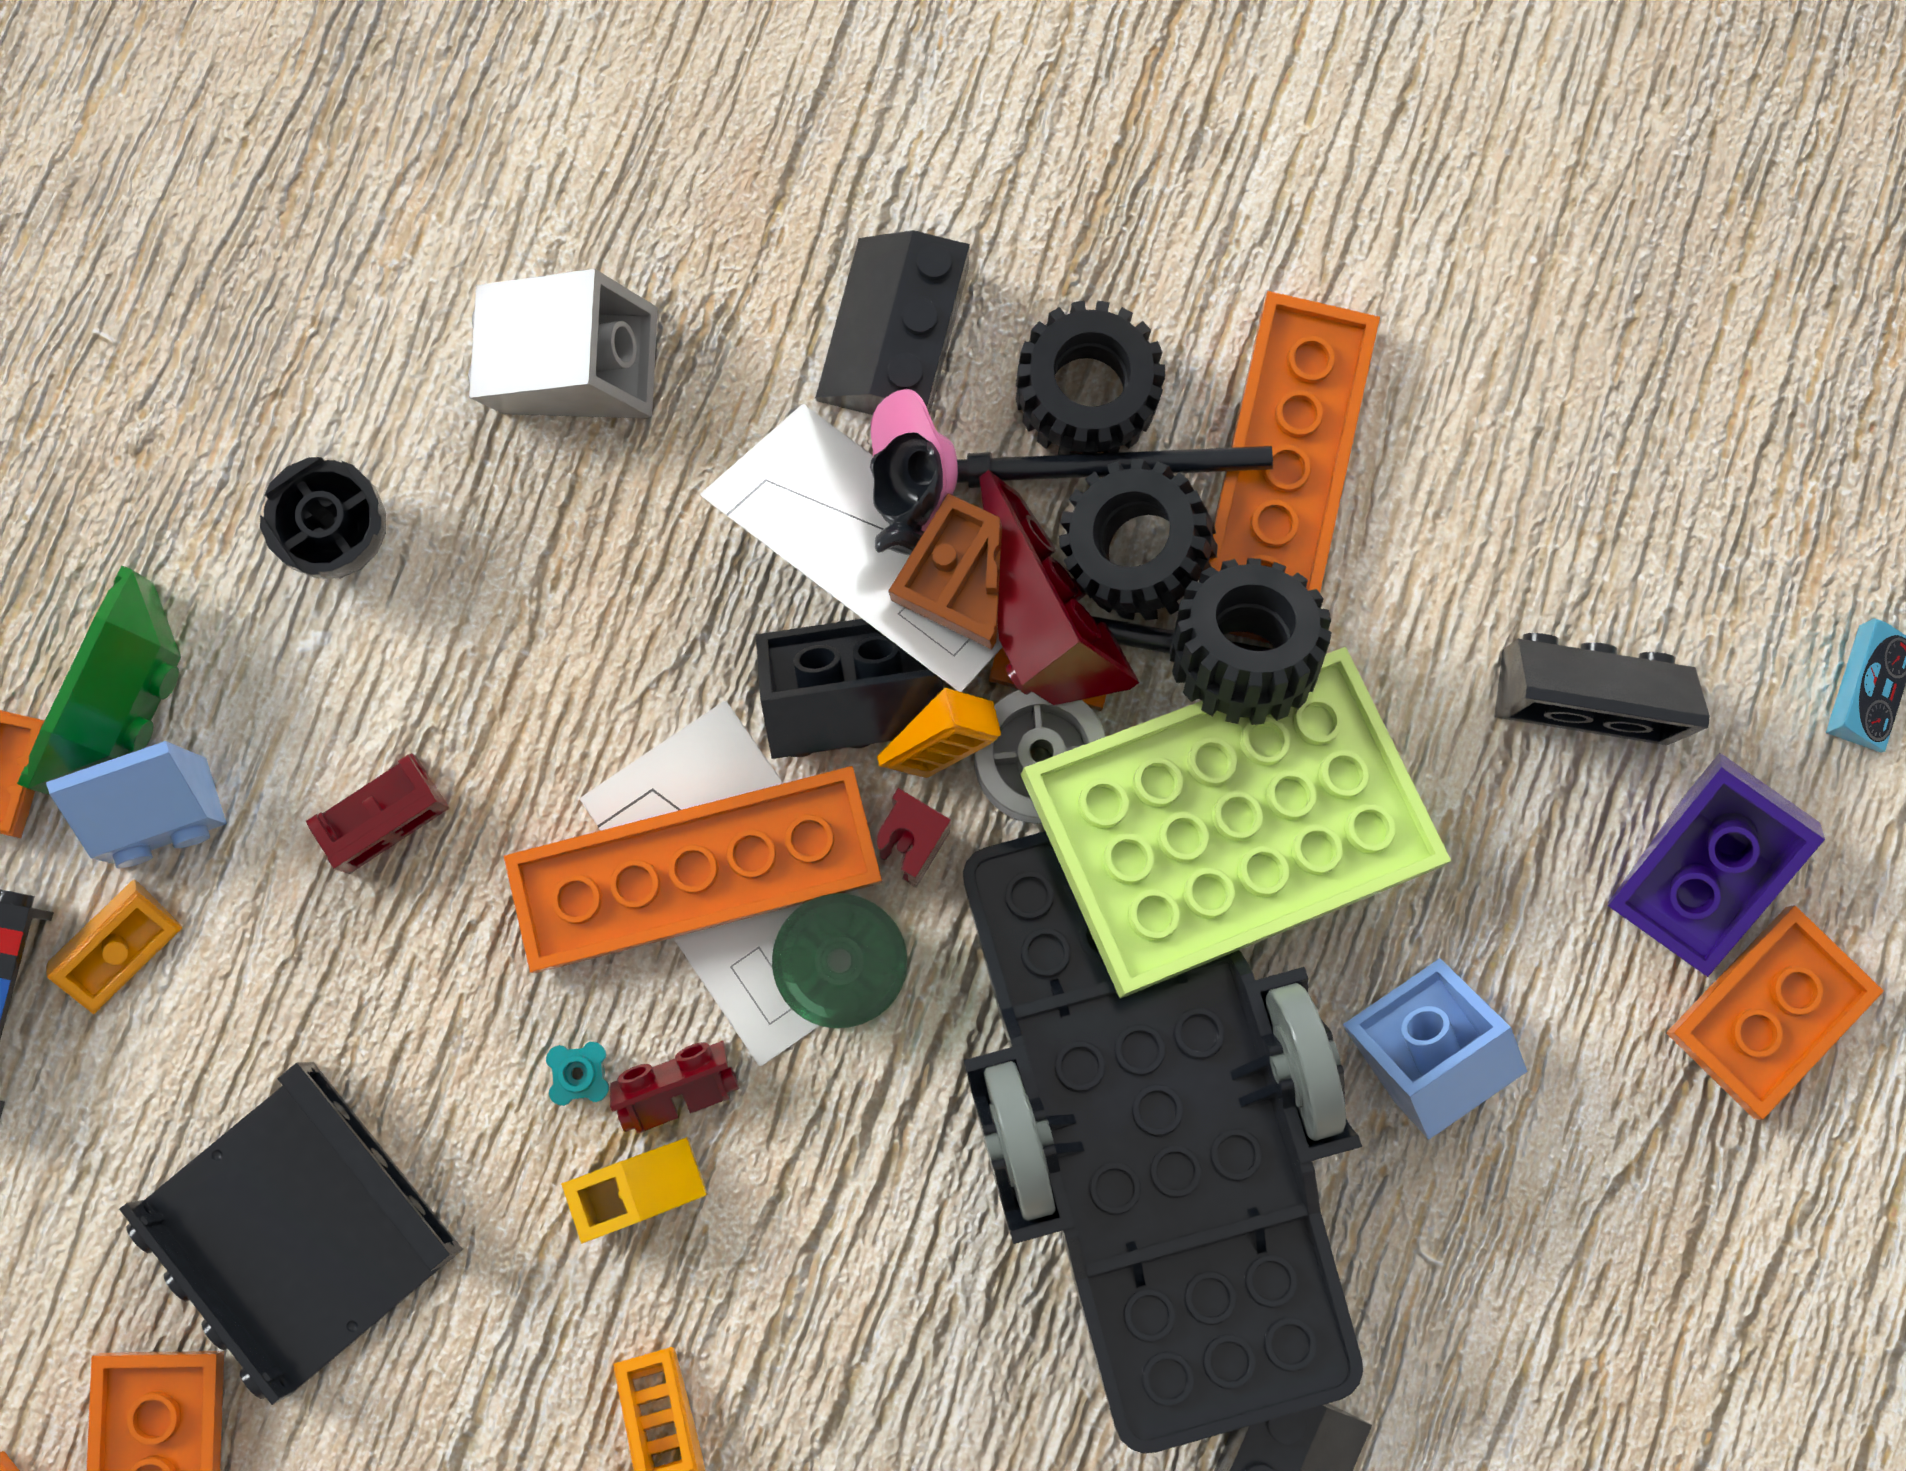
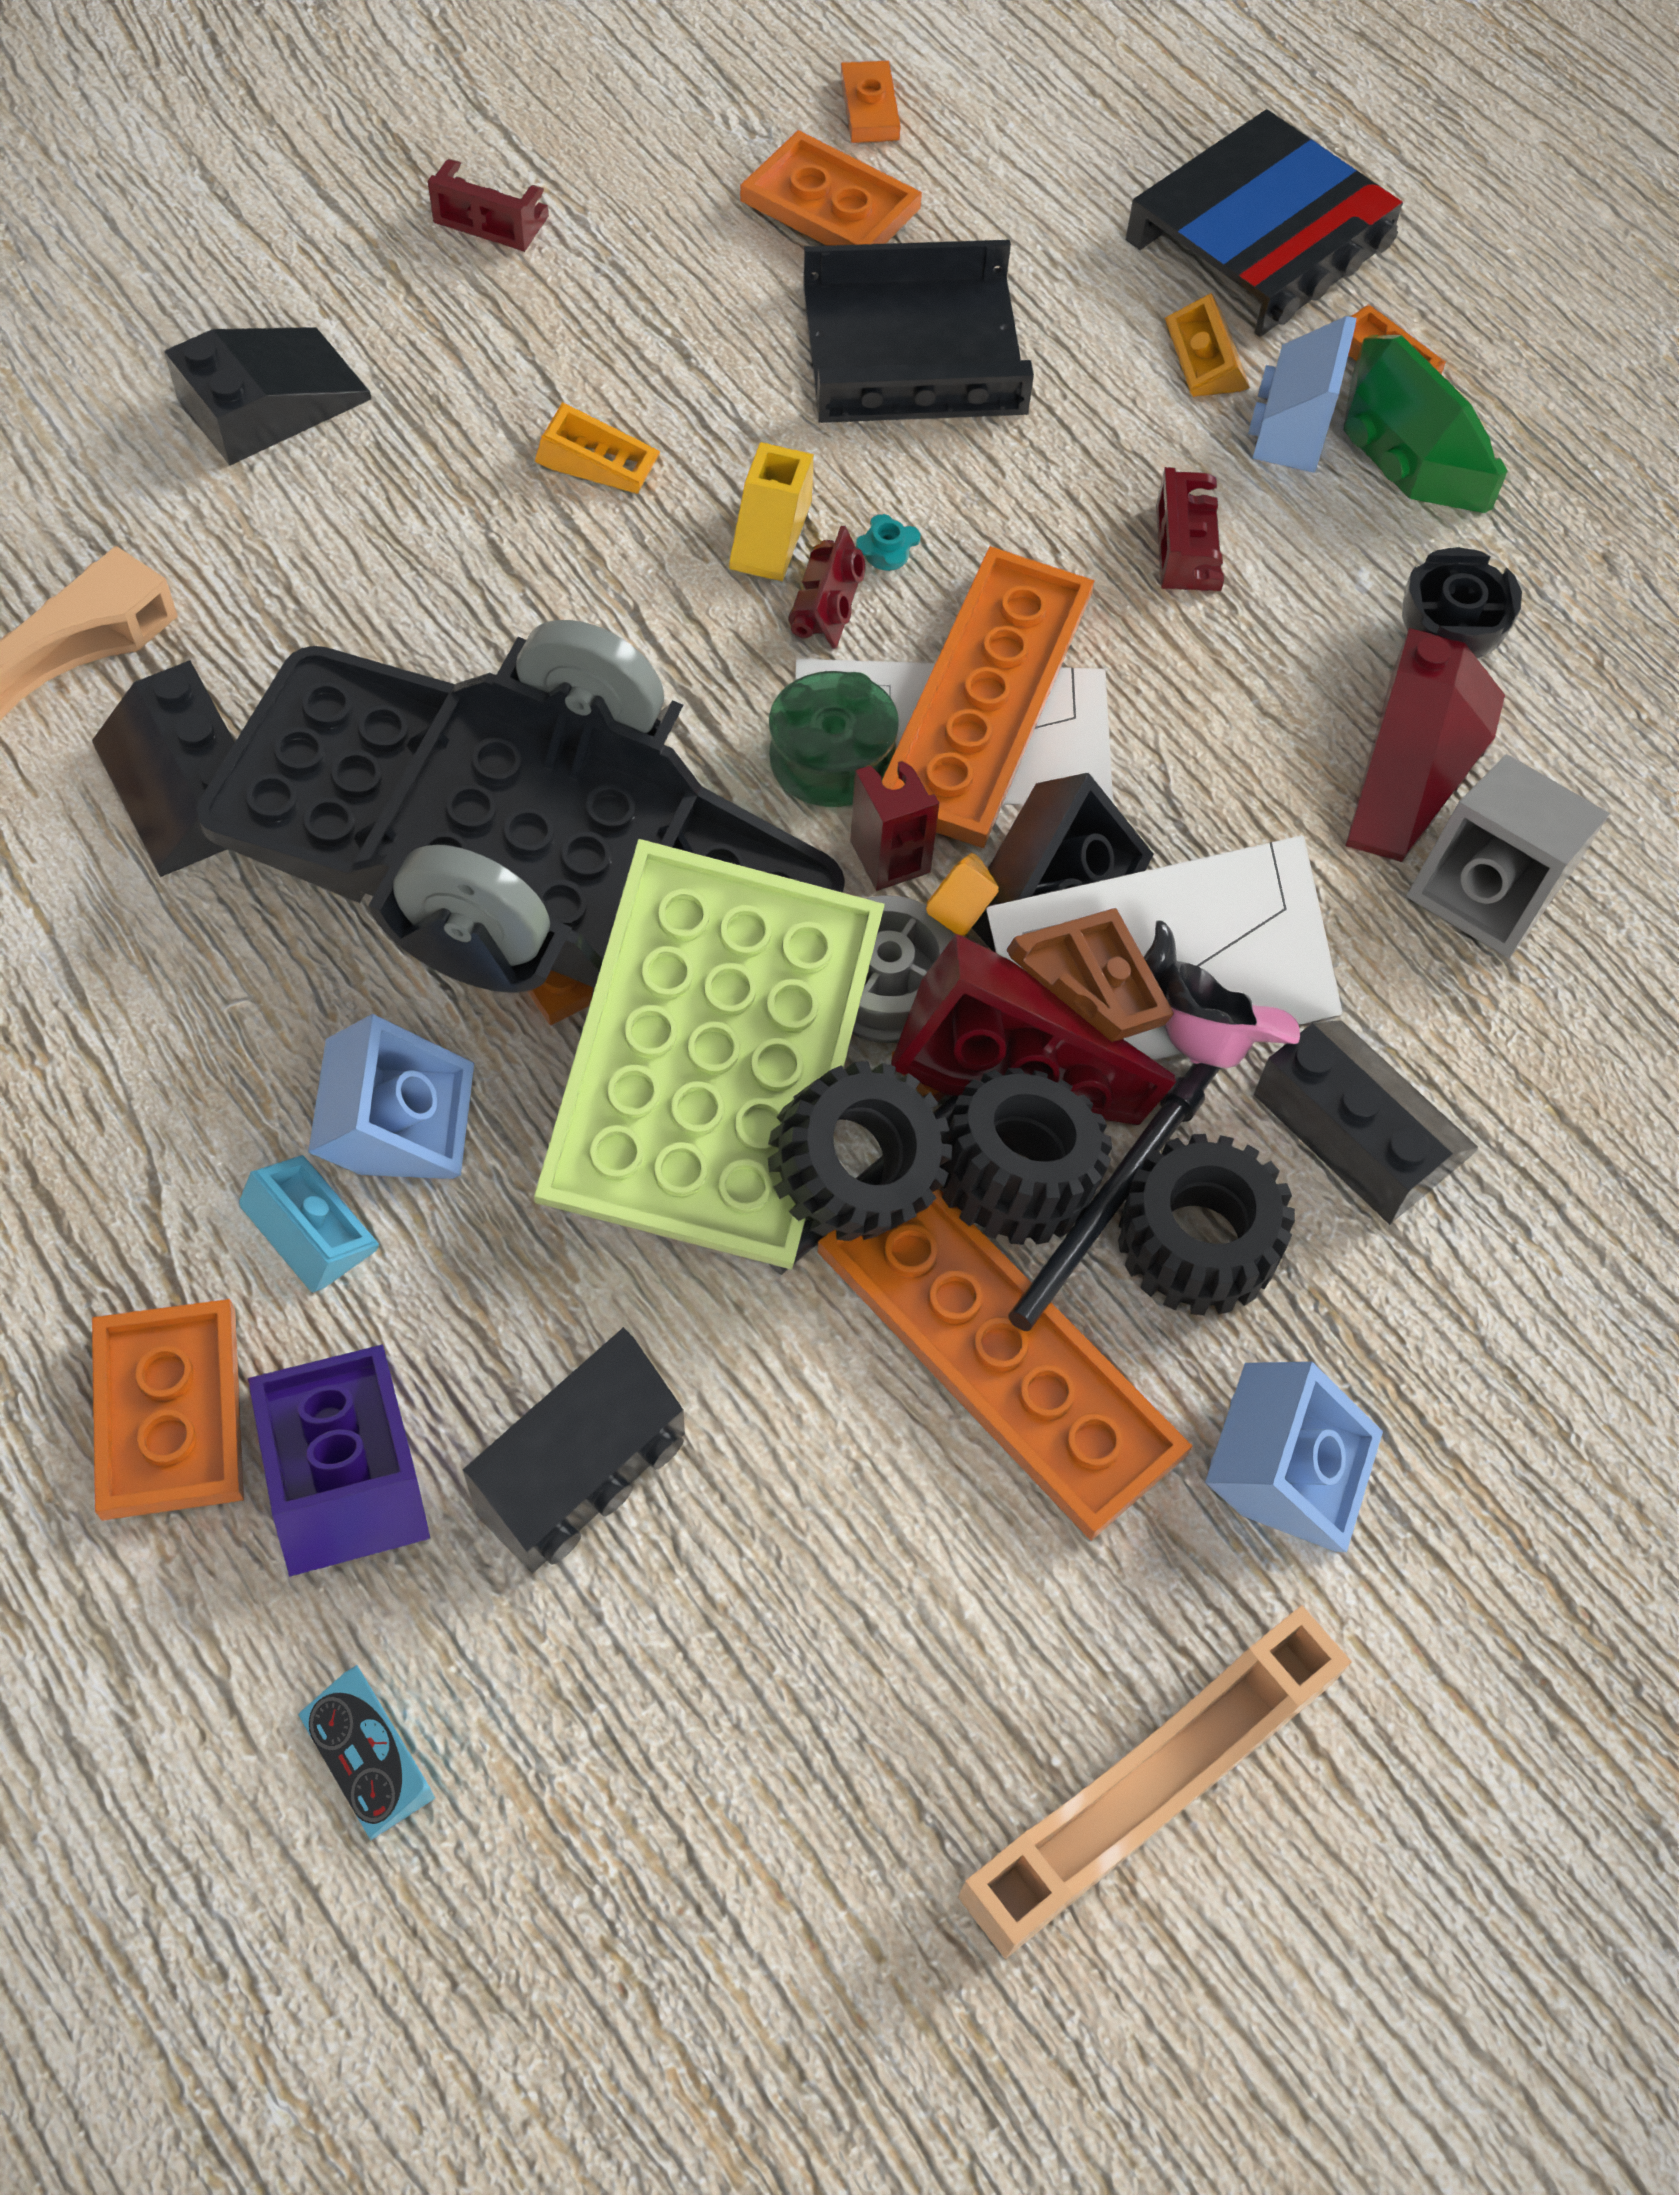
camera: 125 degrees right, 20 degrees down
(475, 485) = (1429, 736): none -> dark red wedge
(1220, 224) = (1295, 1453): none -> light blue slope
(1561, 1039) = (306, 1221): none -> medium azure slope
(1614, 205) = (1152, 1783): none -> light nougat arch

